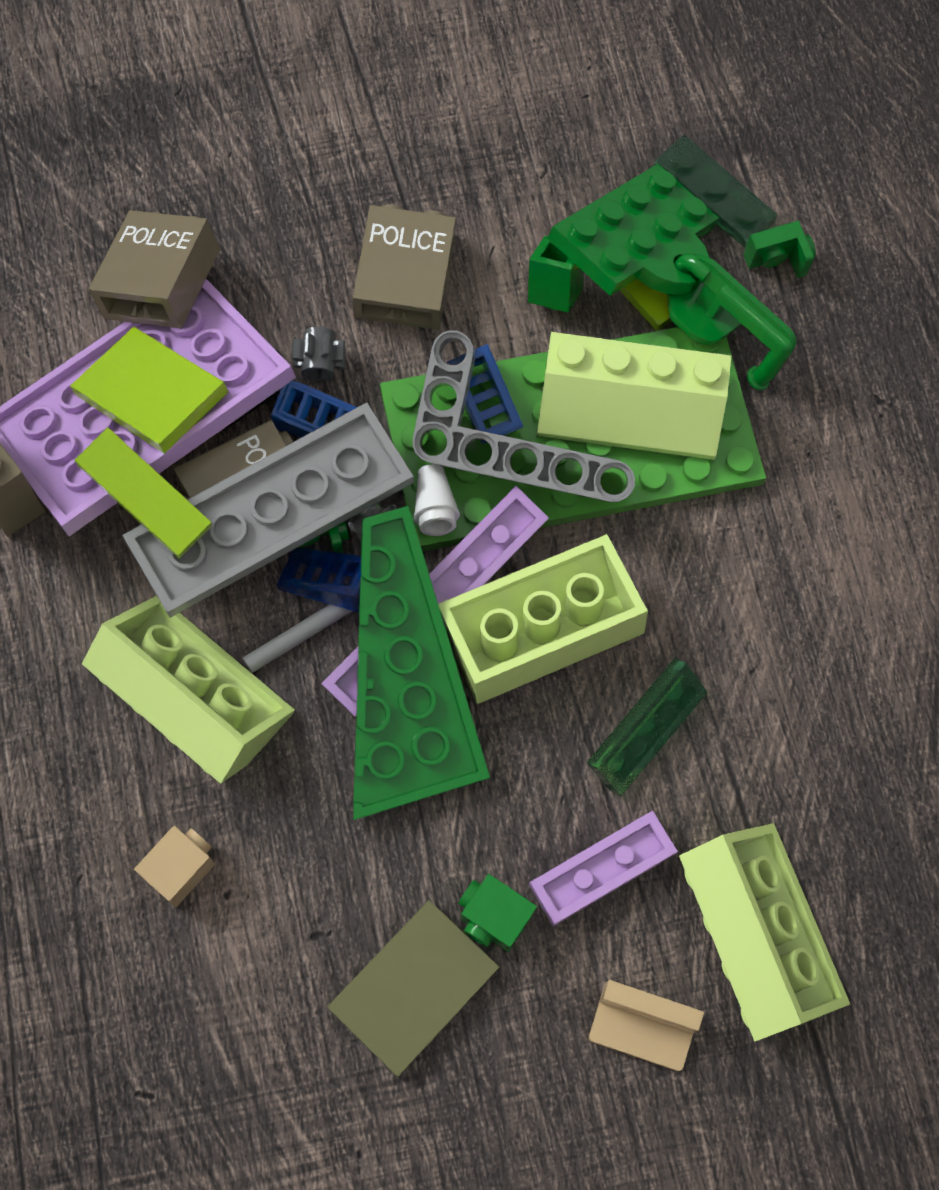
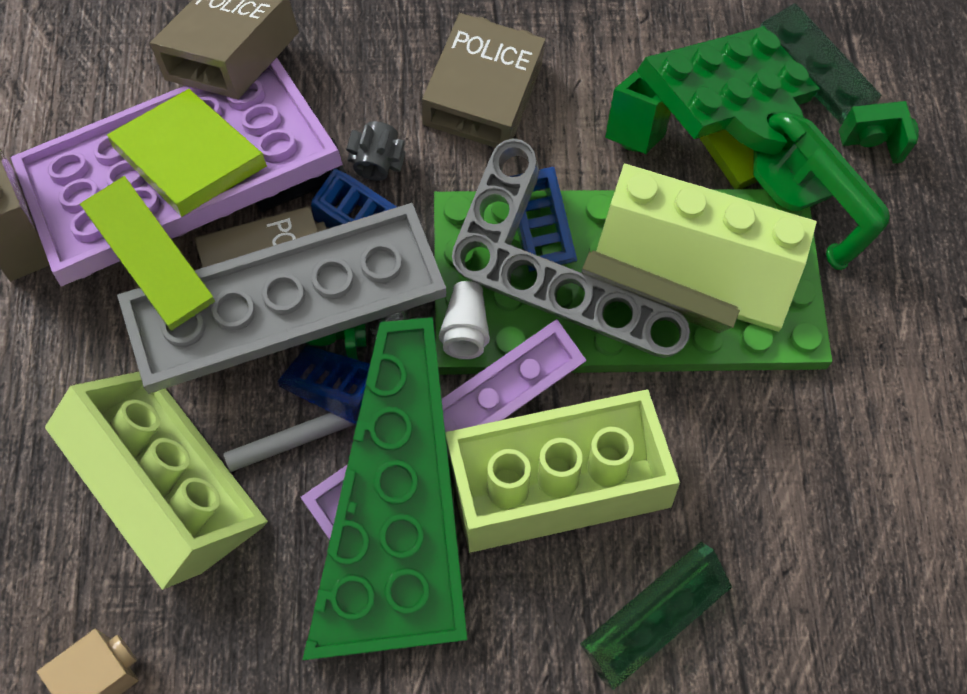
camera: 10 degrees right, 5 degrees down
(603, 446) = (692, 304): none -> olive tile

